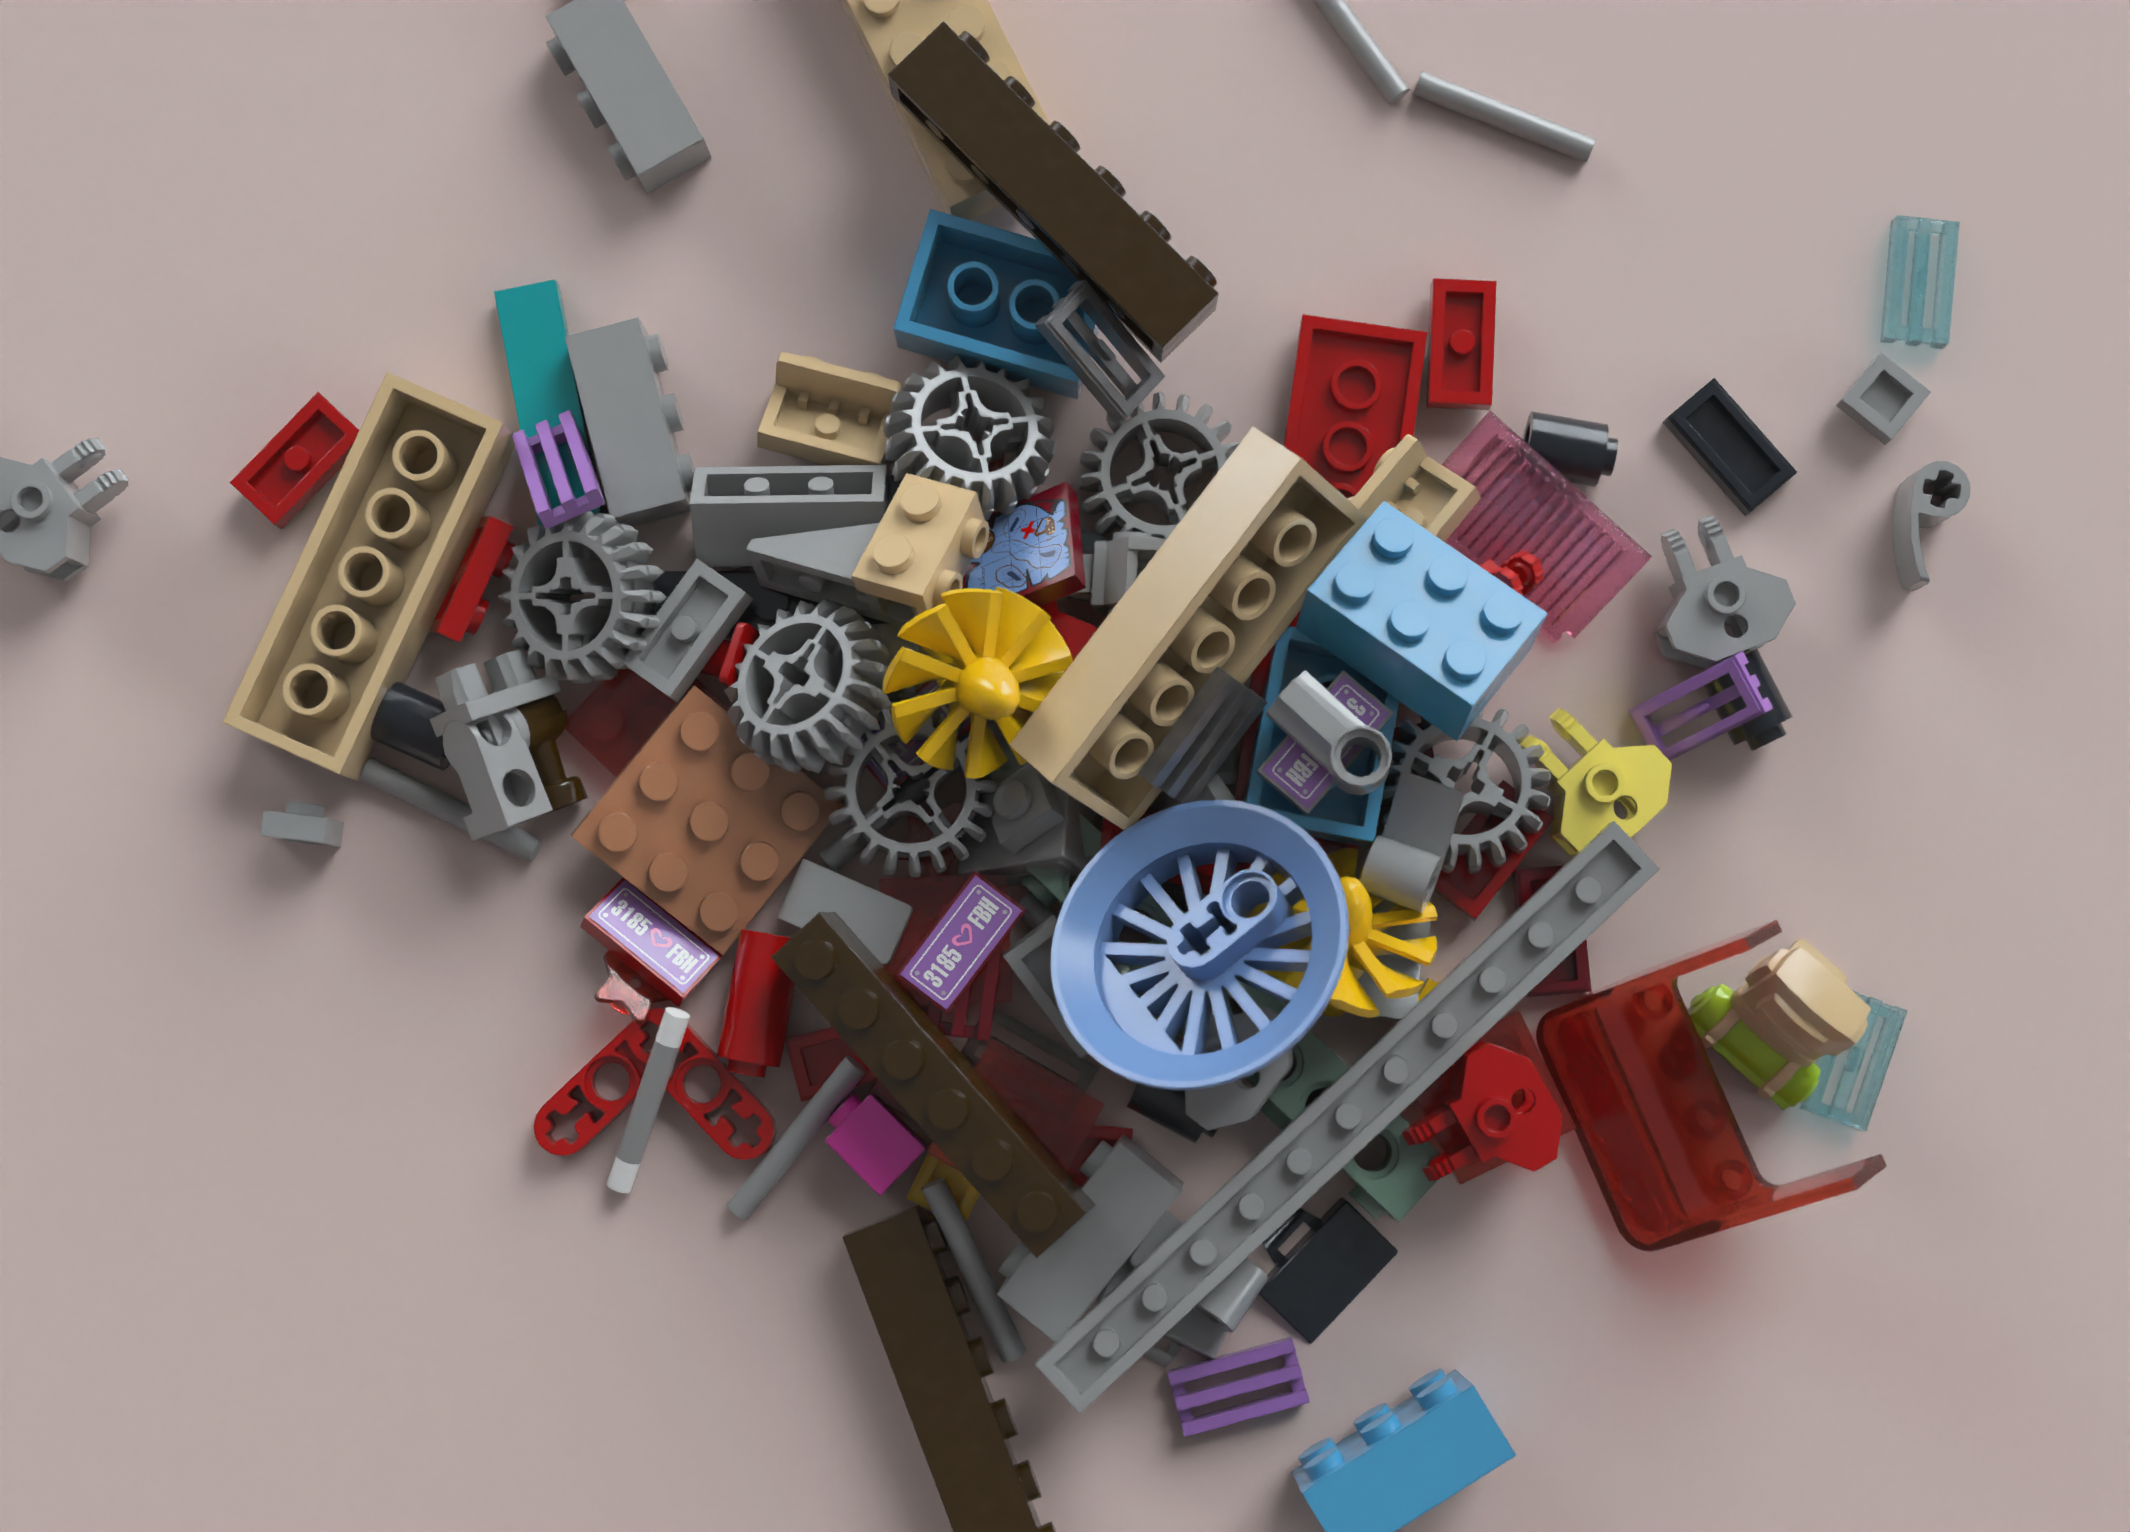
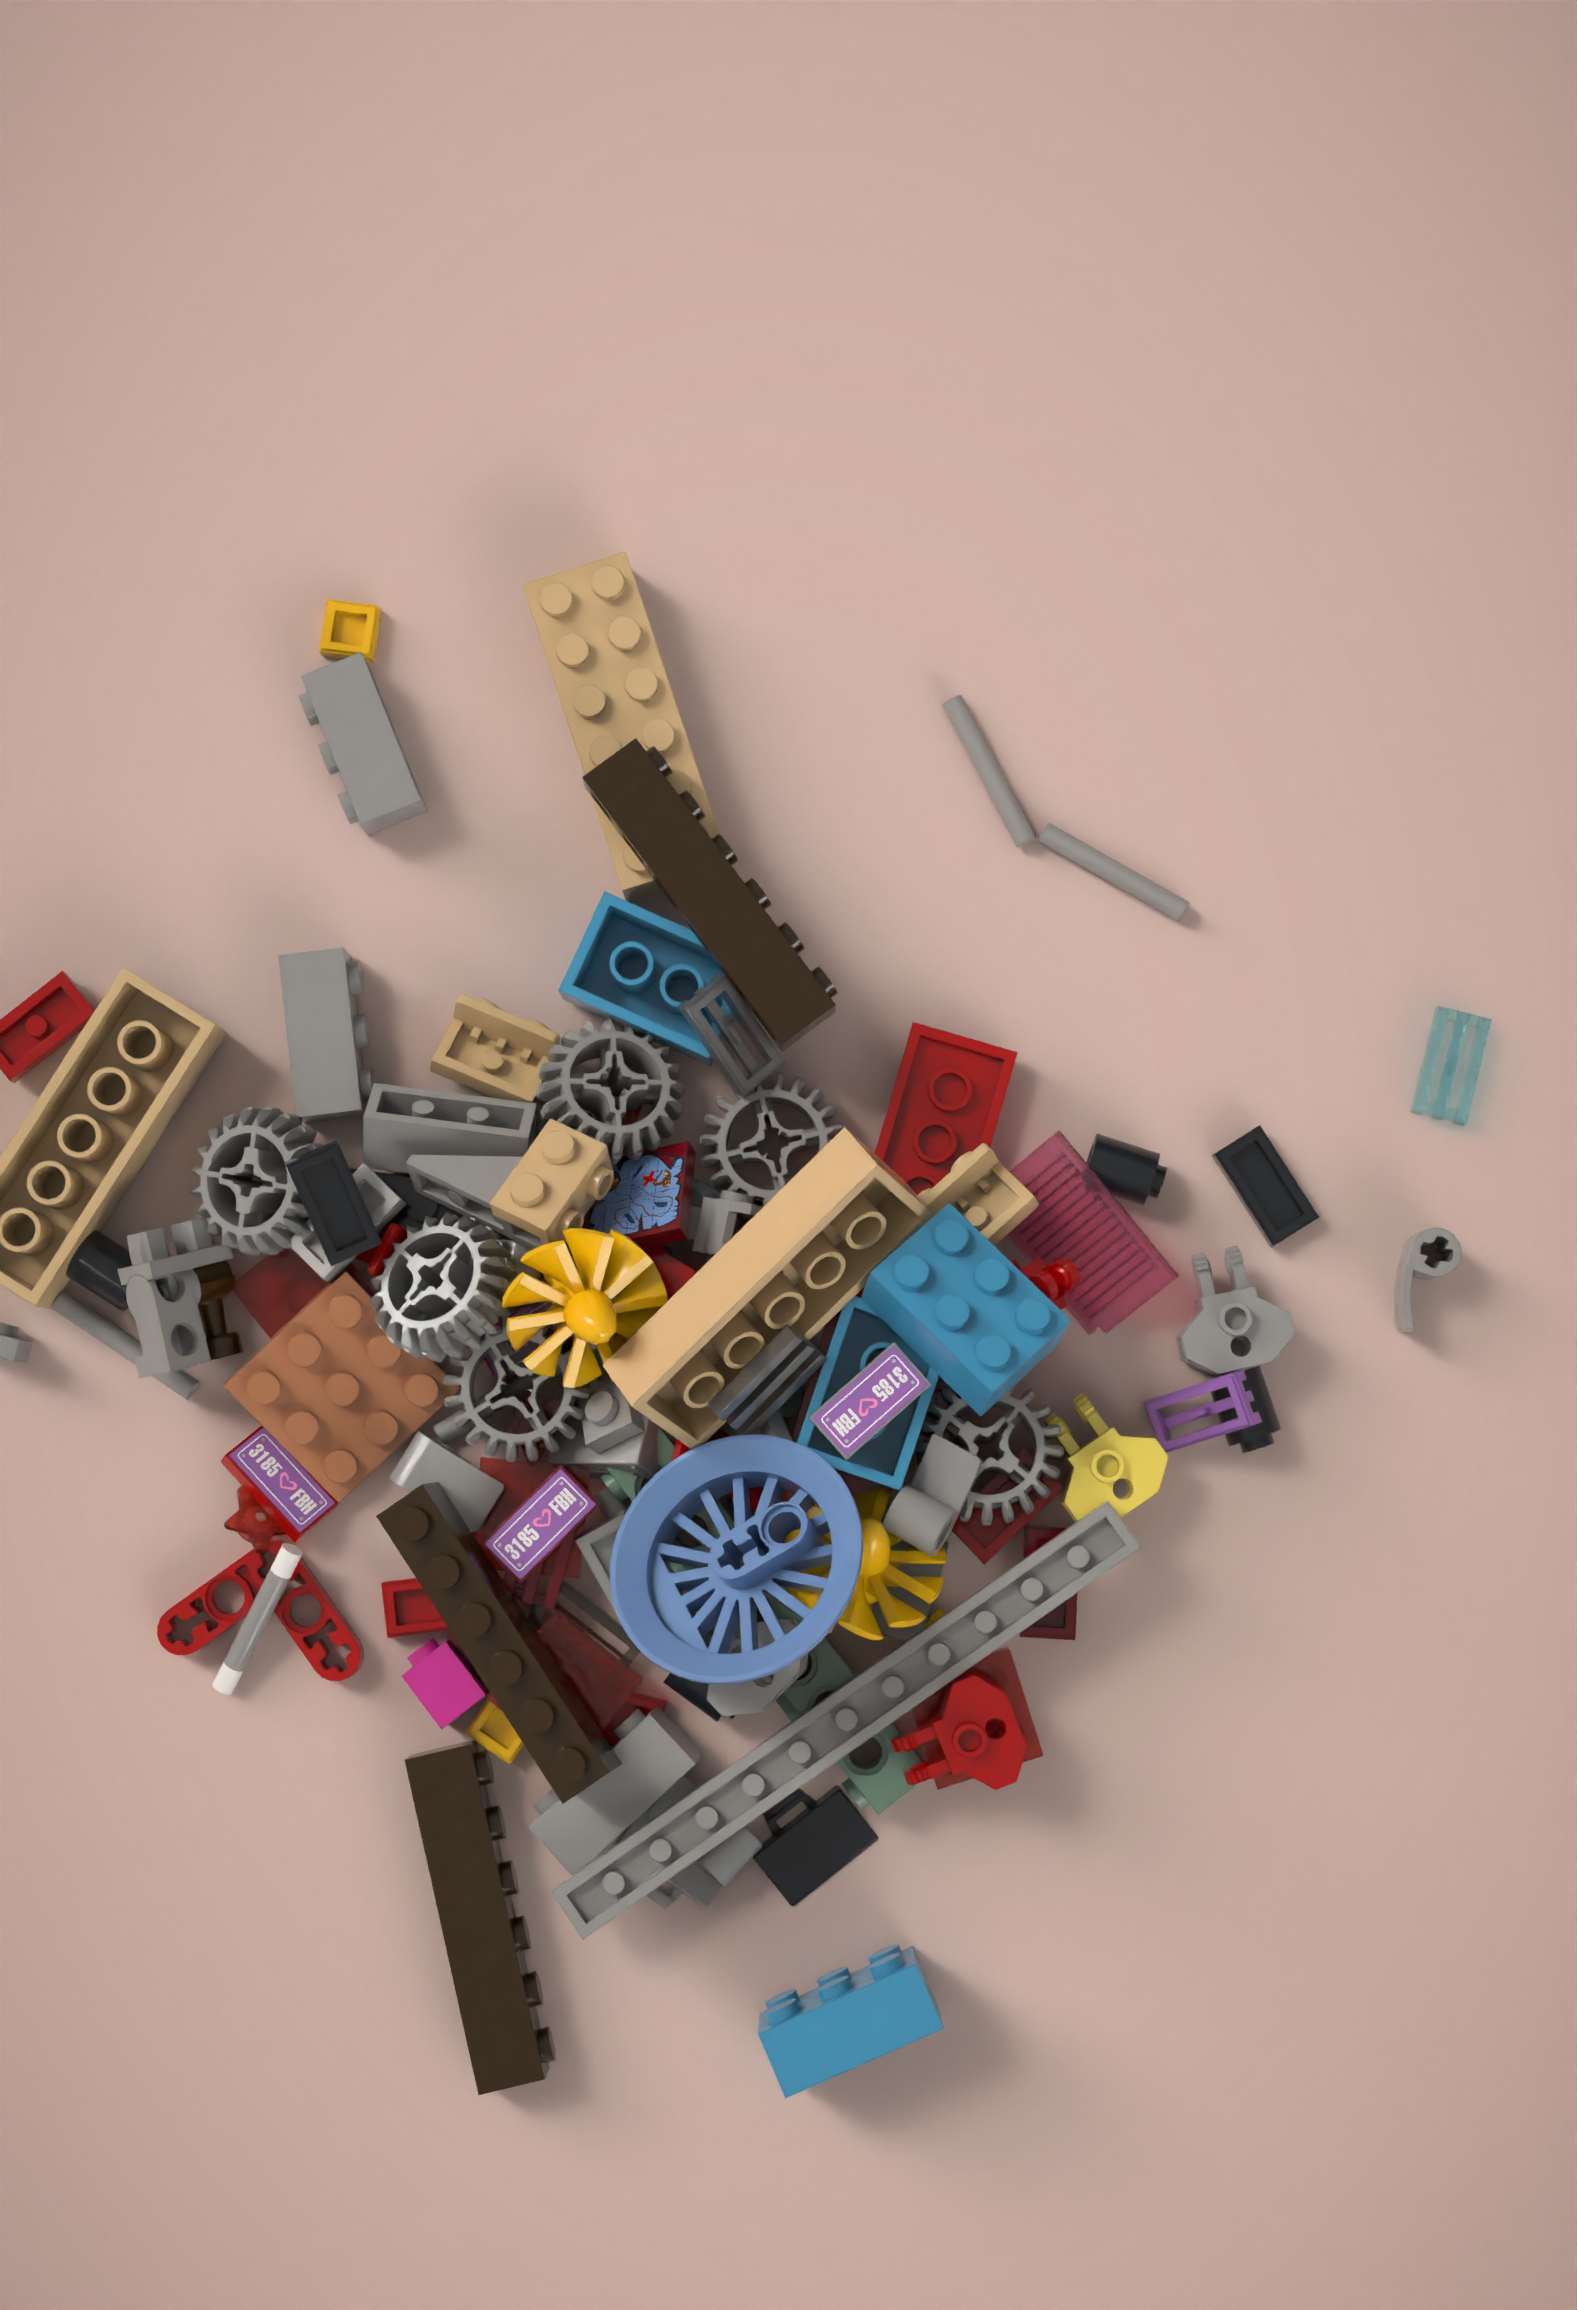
camera: 10 degrees right, 0 degrees up
(485, 556) = (160, 1171): red plate -> none
(541, 371) = (257, 1006): teal tile -> none
(547, 441) = (250, 1041): medium lavender tile -> none
(669, 605) = (333, 1203): none -> black tile
(756, 1006) = (360, 1551): red brick -> none
(796, 1138) = (378, 1669): light grey bar -> none
(973, 1269) = (513, 1802): light grey bar -> none
(1245, 1411) = (727, 1956): medium lavender tile -> none
(1326, 730) = (870, 1393): light grey piece -> none
(1461, 344) = (1046, 1065): red plate -> none
(1657, 1111) = (1115, 1751): clear red windscreen -> none
(1782, 1021) = (1231, 1689): tan piece -> none
(1873, 1077) = (1305, 1751): clear light blue tile -> none
(1883, 398) = (1402, 1163): light grey plate -> none

